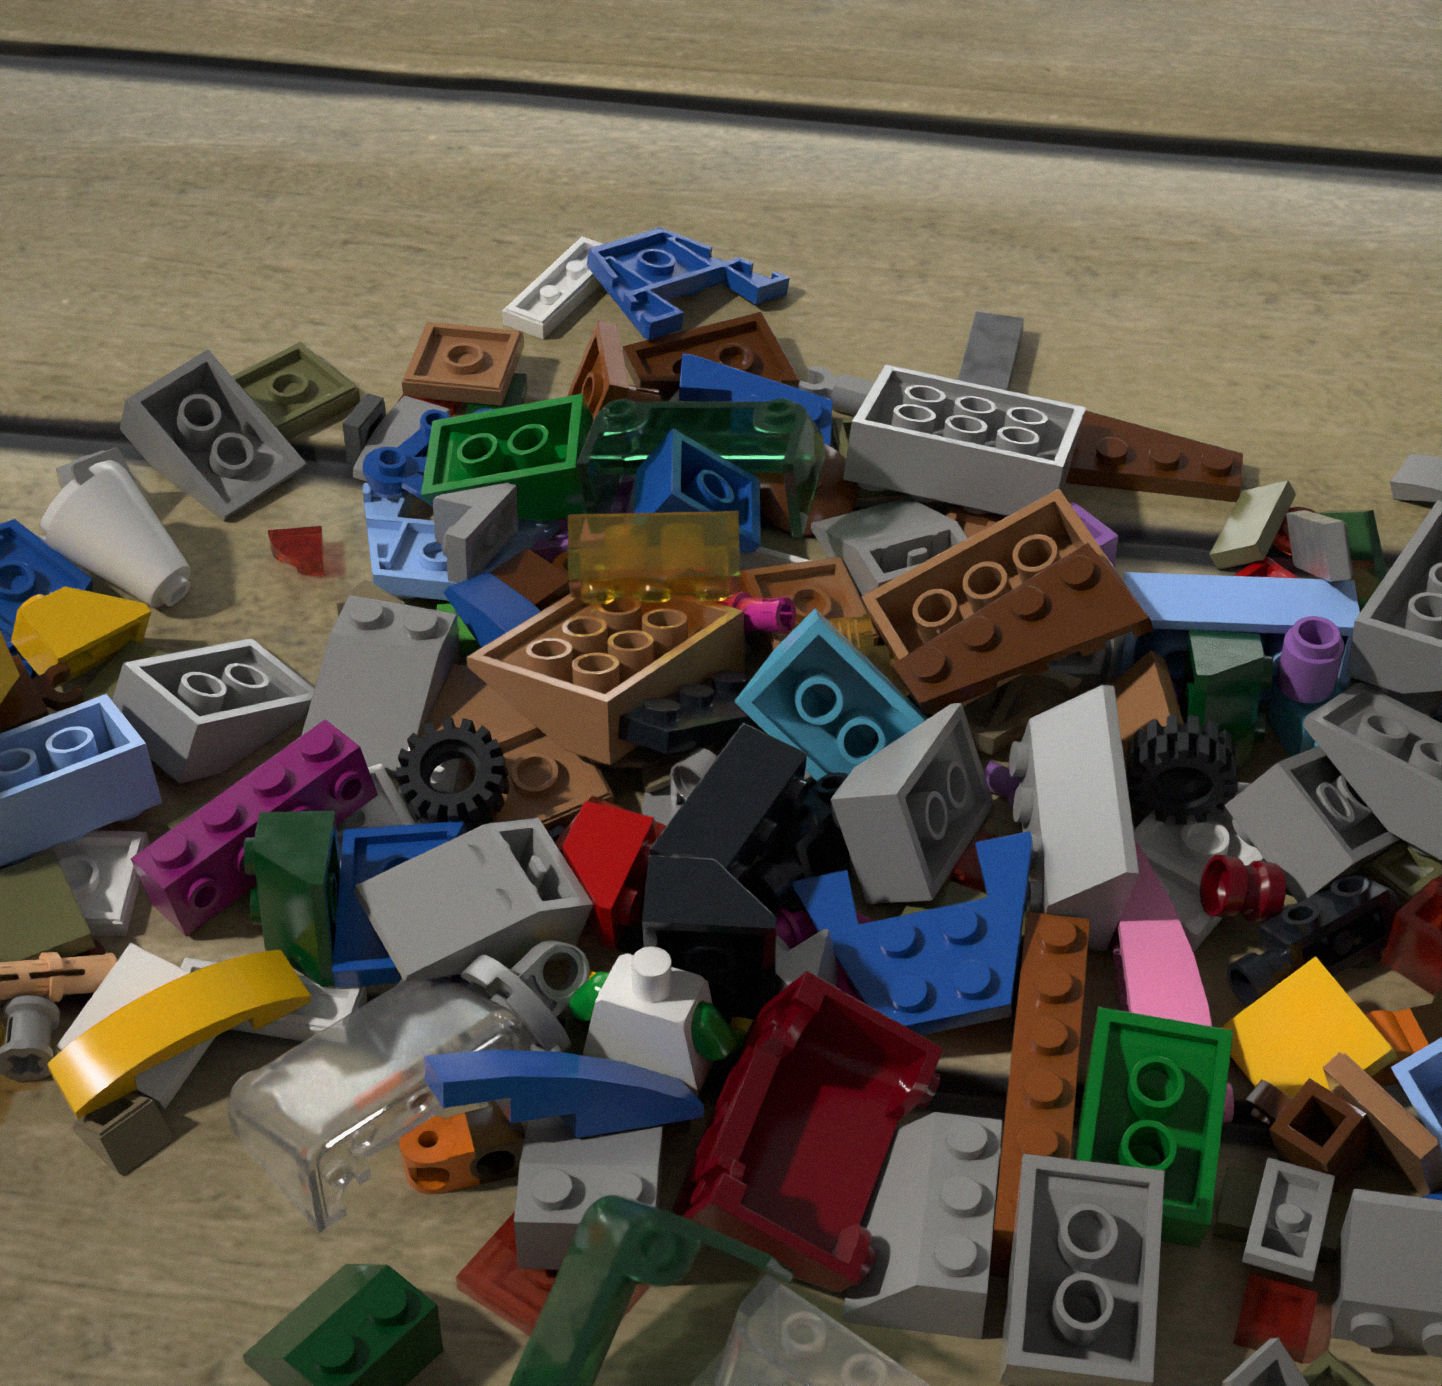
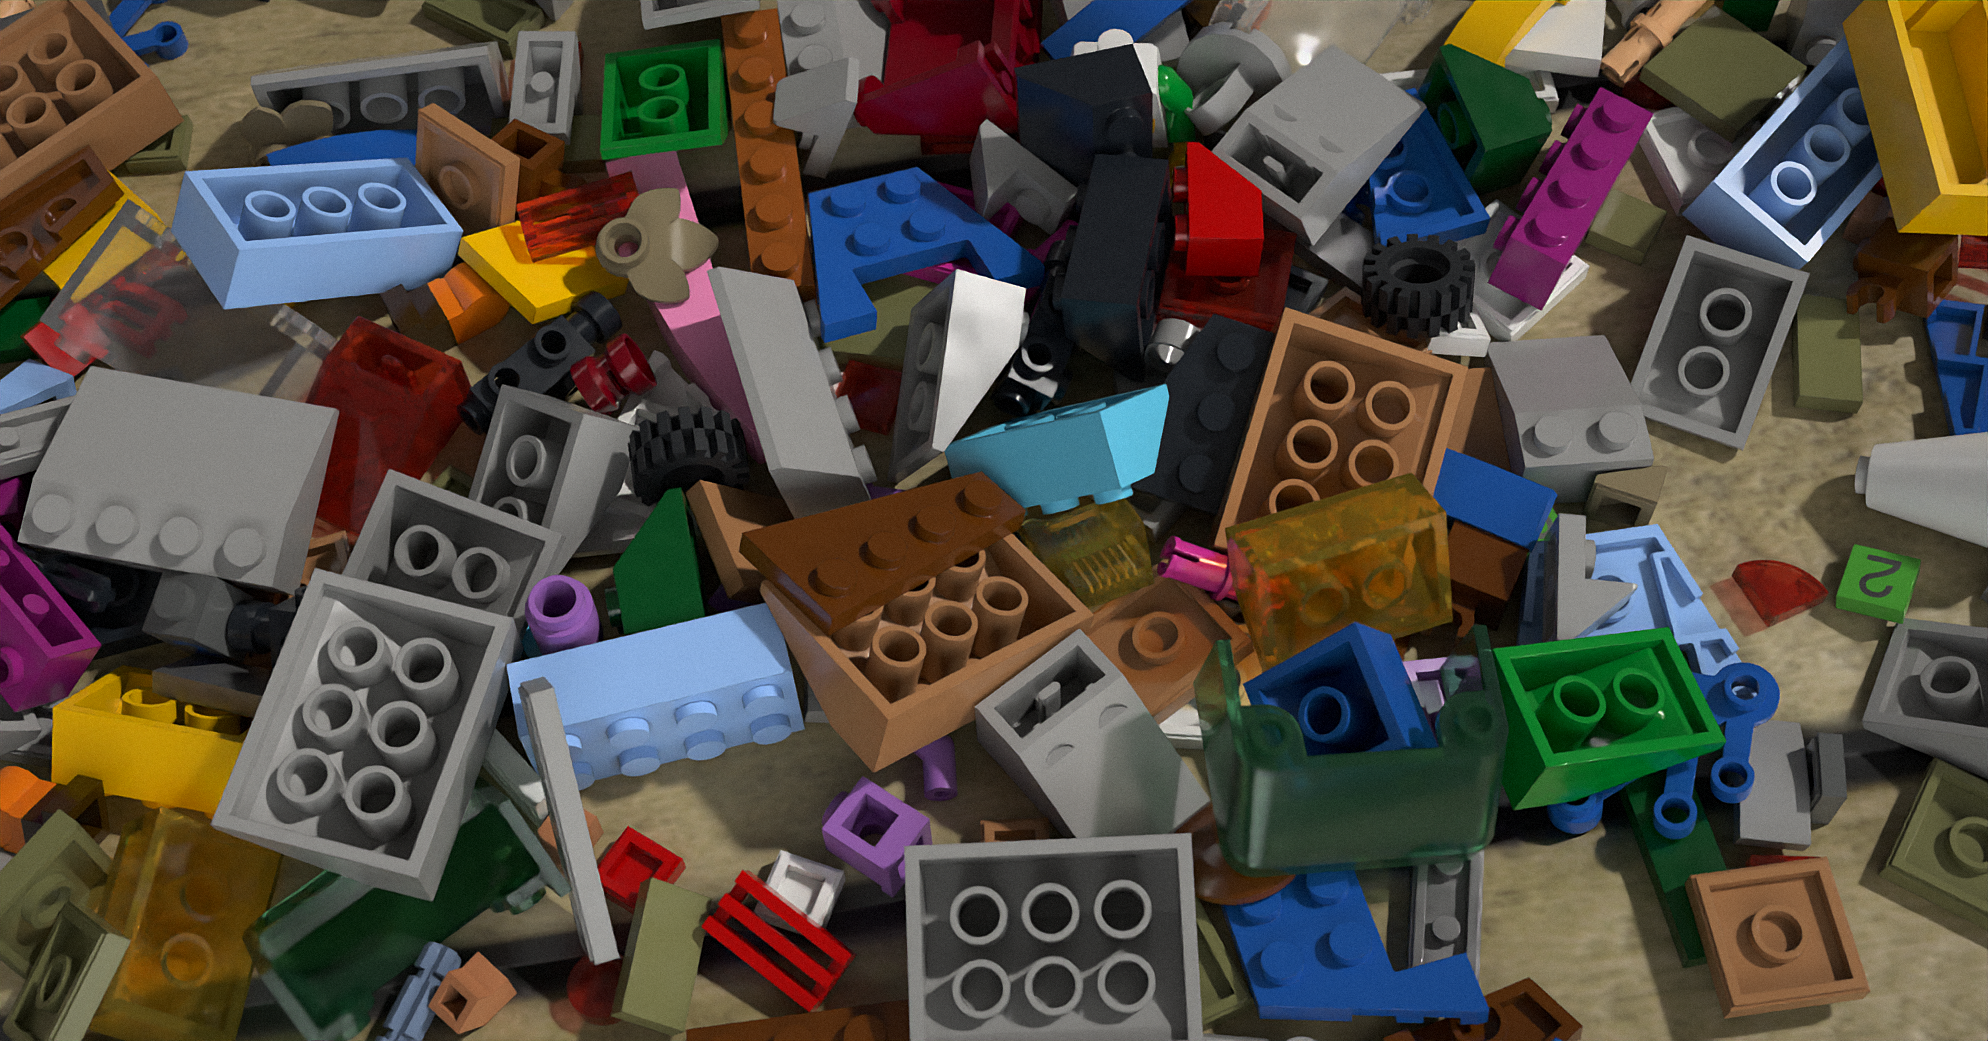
camera: 165 degrees right, 15 degrees up
(76, 629) = (1914, 363): yellow slope -> none
(225, 530) = (1878, 583): none -> bright green tile
(603, 372) = (1544, 896): dark orange tile -> none
(975, 1074) = (819, 108): none -> light grey slope
(1143, 547) = (806, 885): none -> white tile
(1163, 513) = (732, 905): none -> red tile
(1186, 978) = (665, 246): none -> dark tan plate
(1268, 1057) = (583, 222): none -> clear red tile
(1396, 534) = (471, 995): none -> nougat piece

